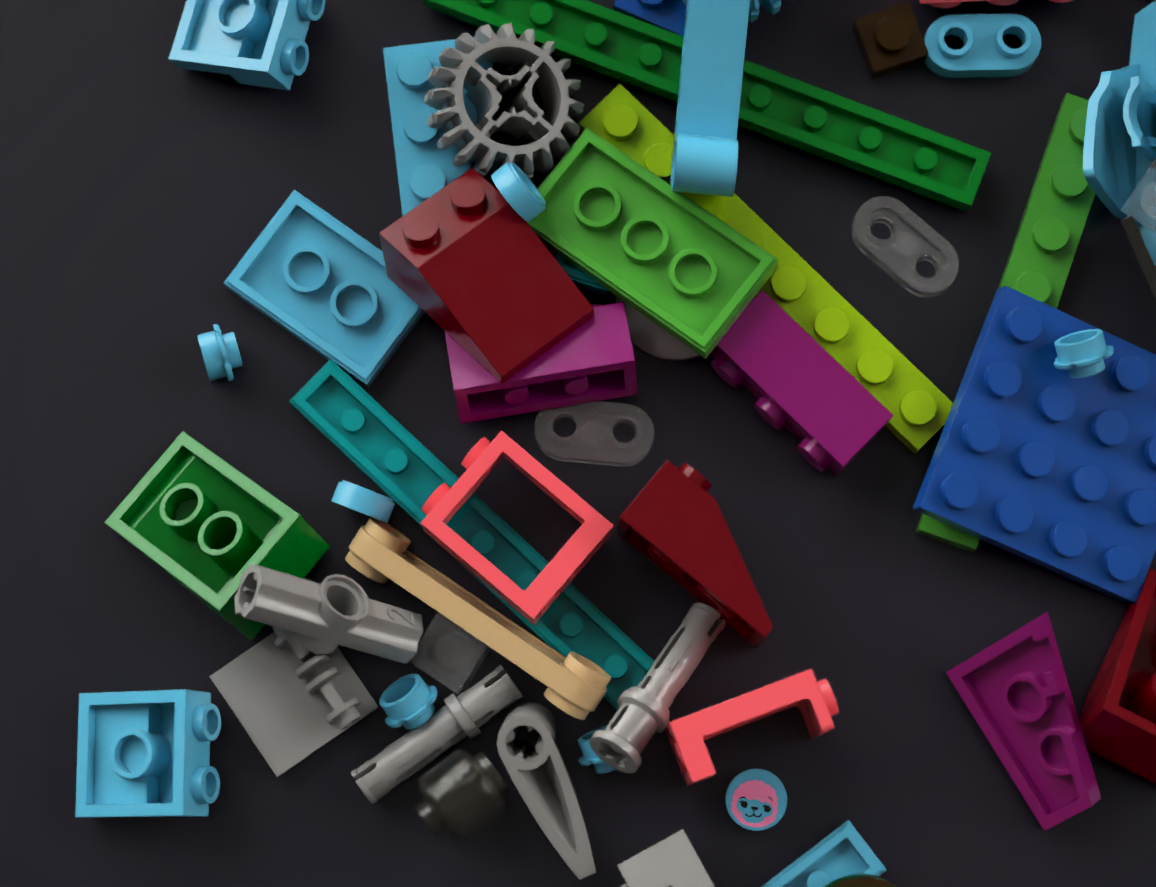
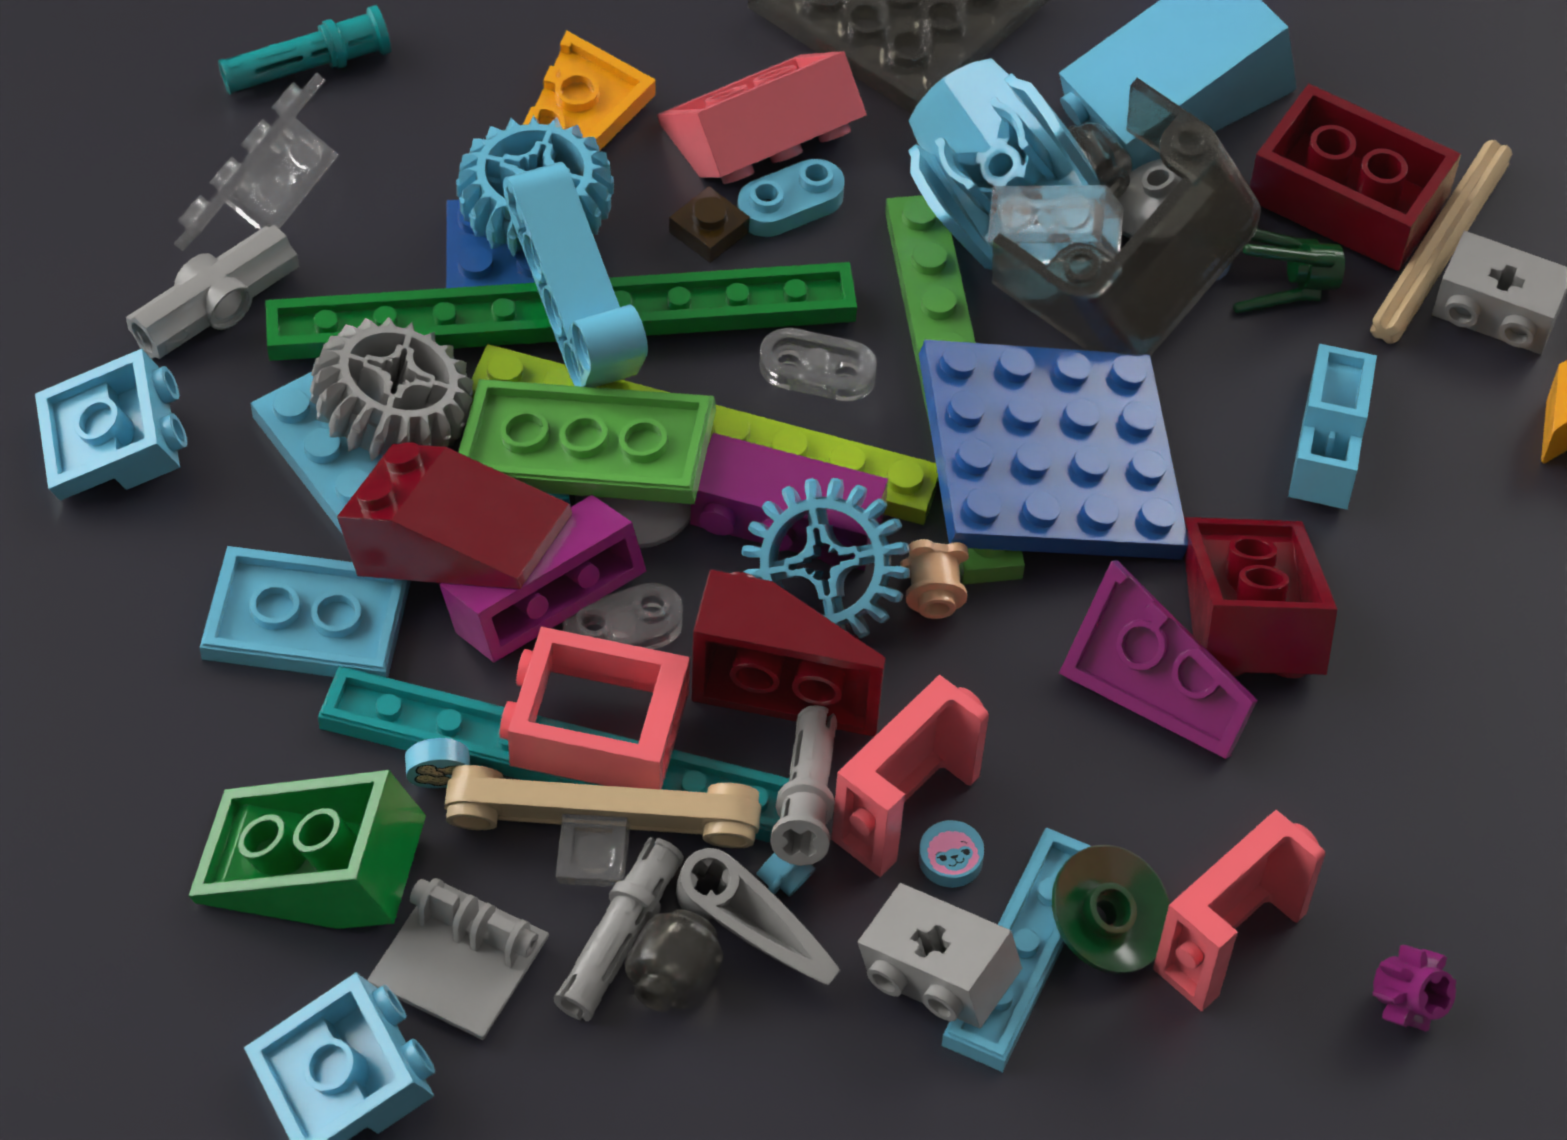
camera: 30 degrees left, 25 degrees down
(219, 353) = (227, 706): medium azure plate -> none
(328, 614) = (460, 849): light grey piece -> none
(408, 702) = (577, 911): medium azure plate -> none
(519, 191) = (449, 432): medium azure tile -> none
(750, 472) = (821, 532): none -> medium azure gear
(886, 529) = (935, 578): none -> light nougat brick
(1082, 353) = (1022, 355): medium azure plate -> none

